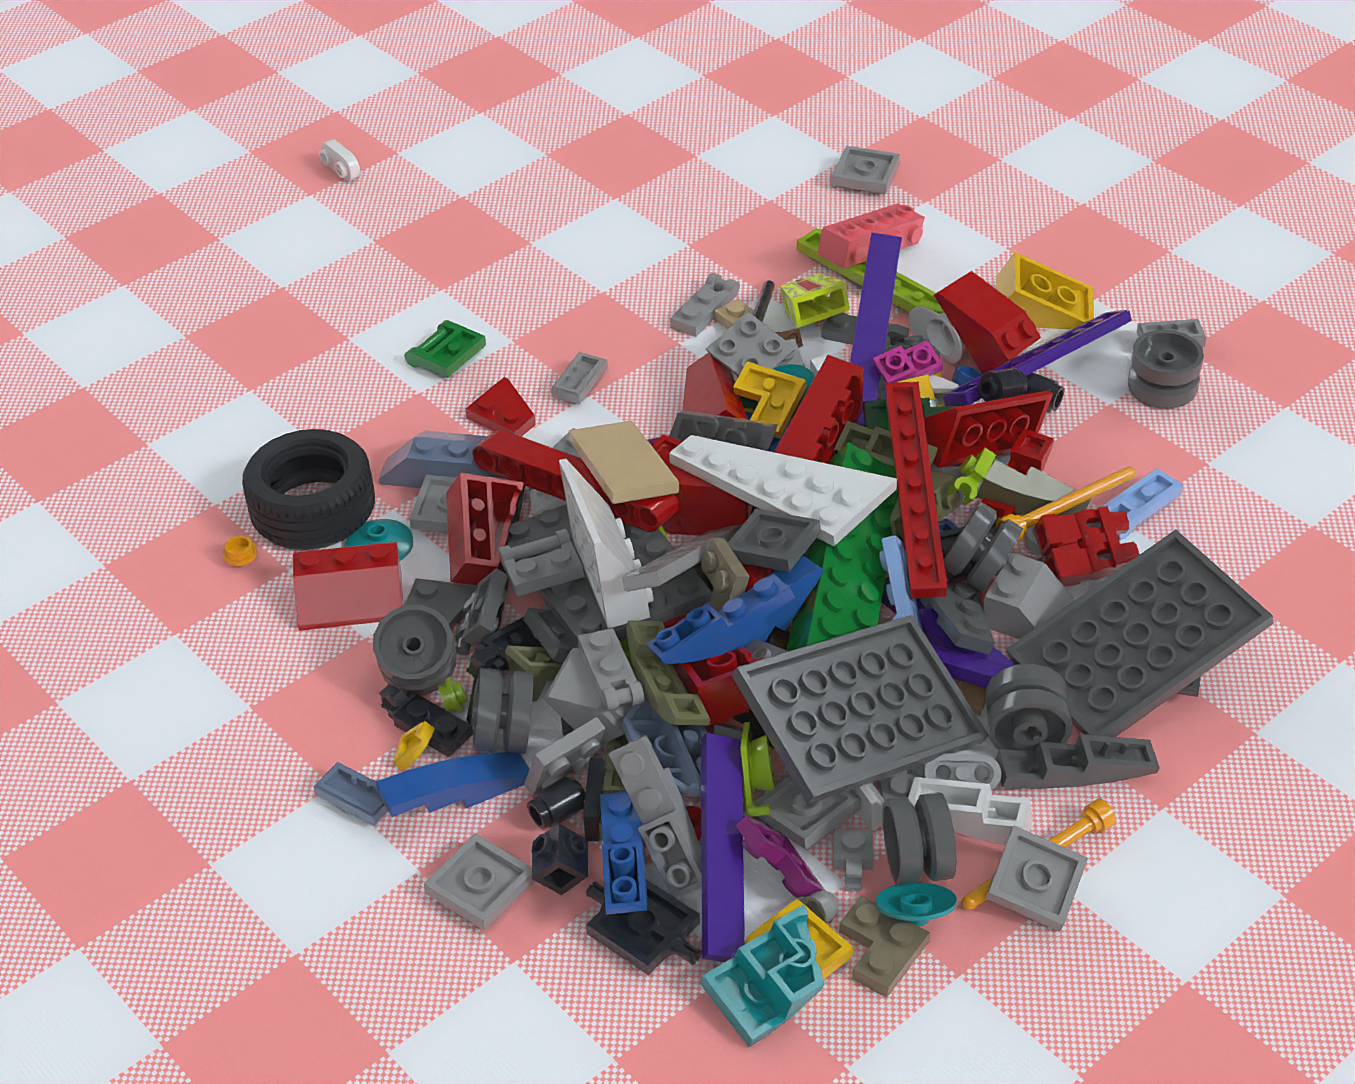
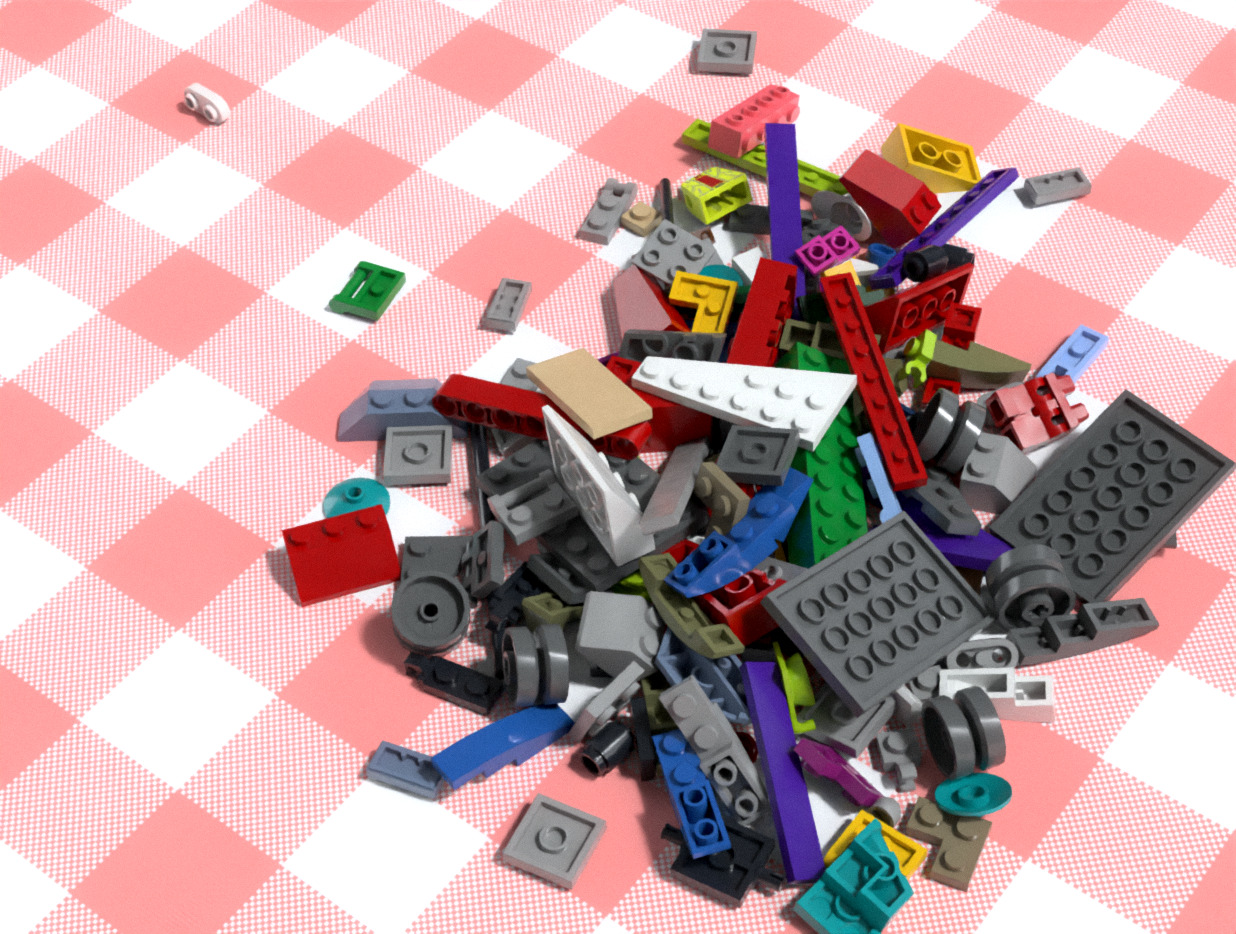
camera: 10 degrees left, 5 degrees up
(239, 551) = (221, 533): light orange plate -> none
(315, 518) = (285, 492): black tyre -> none
(412, 745) = (451, 710): yellow tile -> none
(453, 695) = (476, 653): lime plate -> none
(474, 514) = (451, 462): red wedge -> none
(502, 409) = (441, 348): red wing -> none
(559, 859) = (627, 806): black brick -> none
(610, 669) = (633, 610): light grey plate -> none
(1036, 878) = (1078, 753): light grey plate -> none
(1072, 499) = (1015, 368): light orange piece -> none
(1096, 817) = (1113, 683): light orange piece -> none
(1165, 368) = (1064, 222): dark grey wheel -> none

